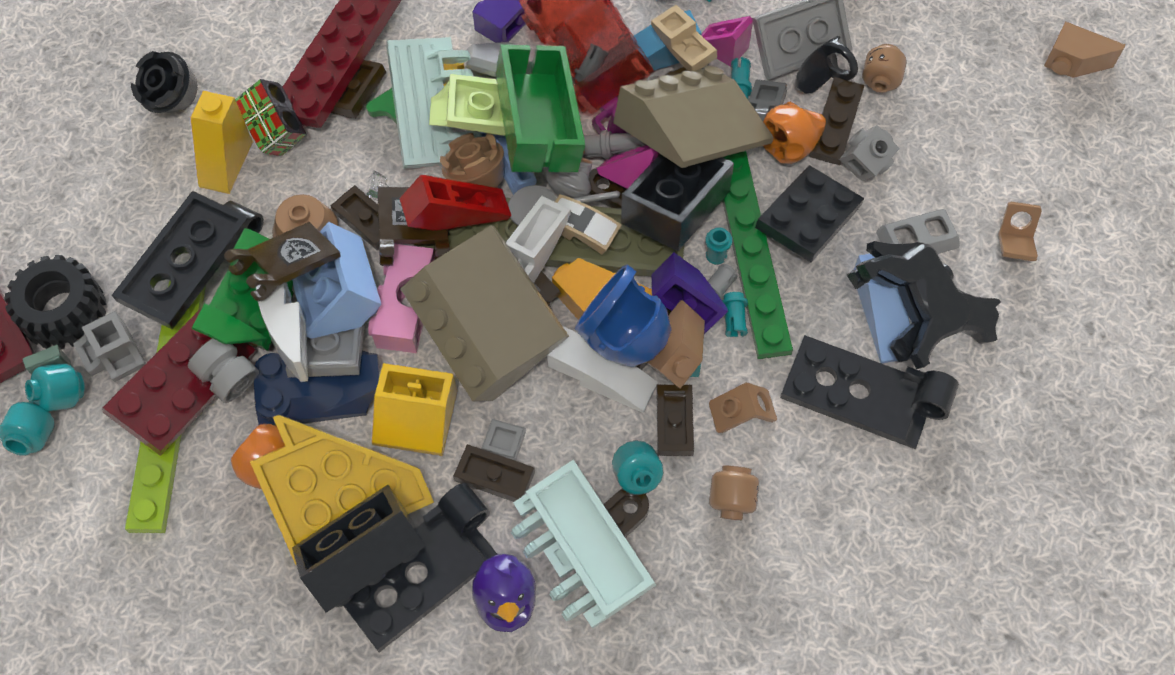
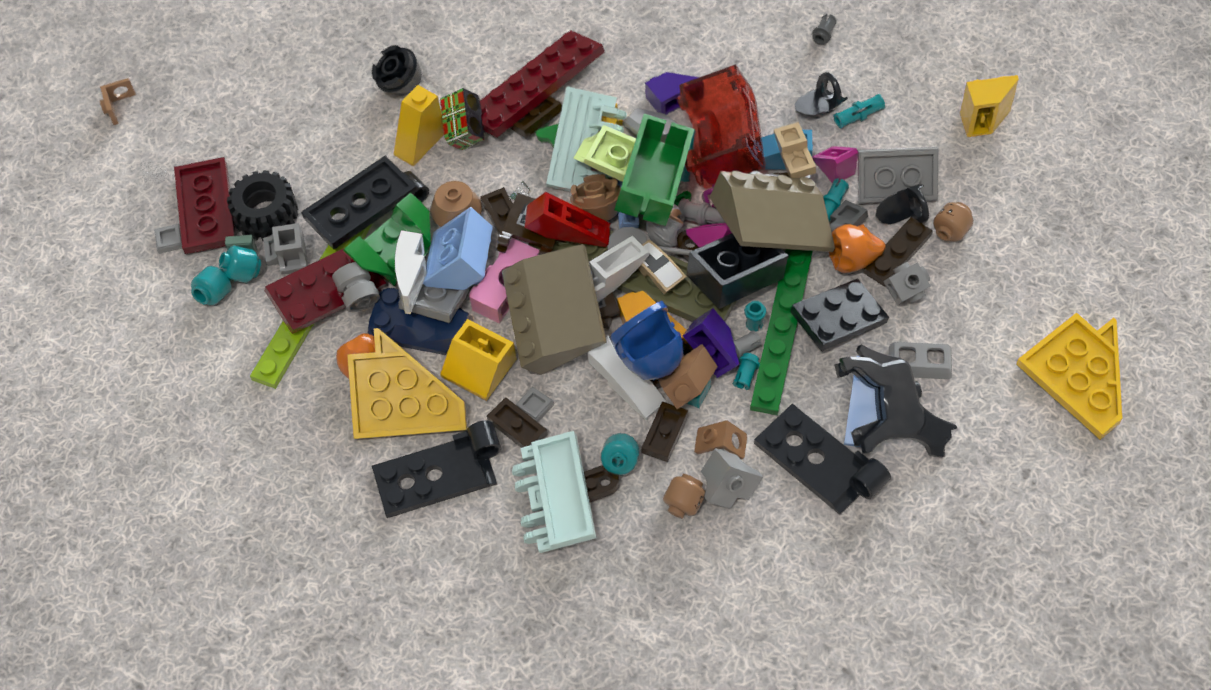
camera: 25 degrees right, 5 degrees down
(283, 258) = (426, 222): dark brown flag -> none
(357, 549) = (397, 439): black brick -> none
(503, 588) = (487, 500): dark purple piece -> none
(593, 60) = (719, 144): dark grey pin -> none
(777, 452) = (728, 479): none -> light grey brick
(1019, 241) = (997, 388): medium nougat bracket -> none
(1082, 52) = (1127, 258): medium nougat slope -> none
(1096, 194) = (1080, 372): none -> yellow wing

